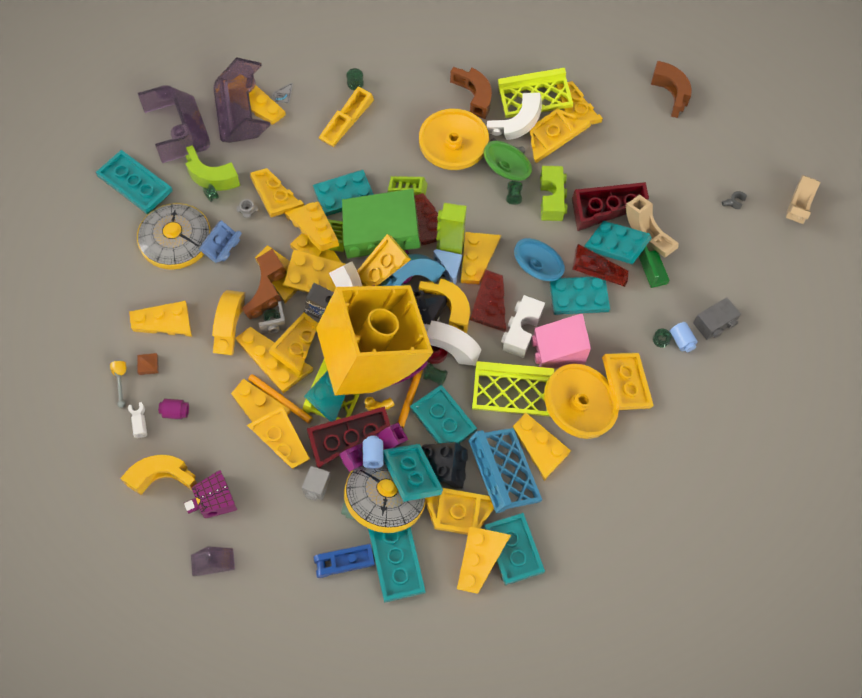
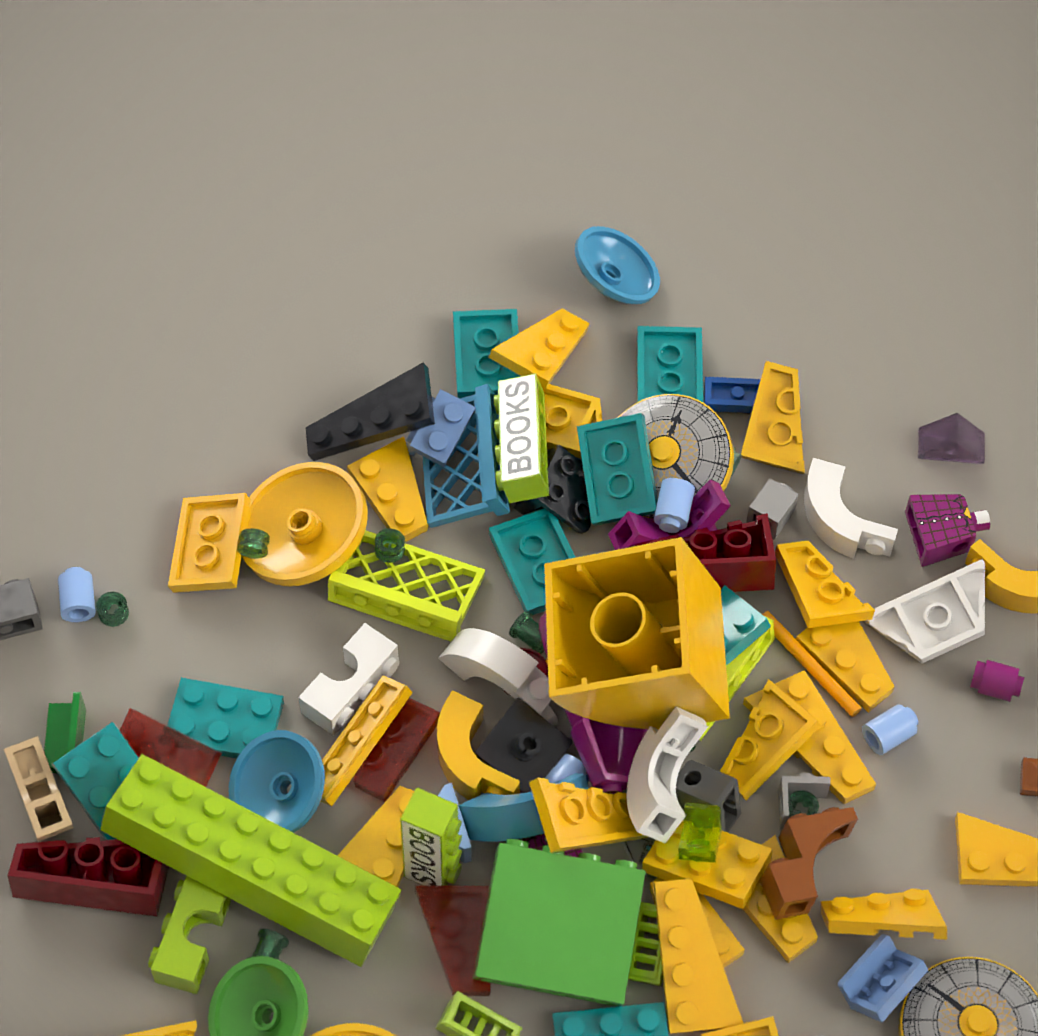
camera: 165 degrees left, 5 degrees down
(211, 437) = (936, 615): none -> white wing
(221, 271) = (895, 911): none -> yellow wing
(225, 321) = (883, 814): yellow arch -> none
(230, 367) = (890, 729): none -> light blue brick
(271, 478) = (834, 522): none -> white arch
(320, 271) = (700, 833): none -> clear neon green bracket
(324, 539) = (775, 421): none -> yellow wing
(438, 633) = (616, 265): none -> dark azure dish
(473, 476) = (521, 438): none -> brick
(507, 295) = (362, 735): none -> yellow tile
(524, 478) = (440, 439): none -> medium blue bracket
(527, 397) = (389, 554): none -> clear green bush
(538, 214) = (250, 859): none -> lime brick
(561, 343) = (297, 624): bright pink slope -> none
(564, 476) = (380, 414): none -> black wing
(602, 378) = (253, 543): none -> clear green bush

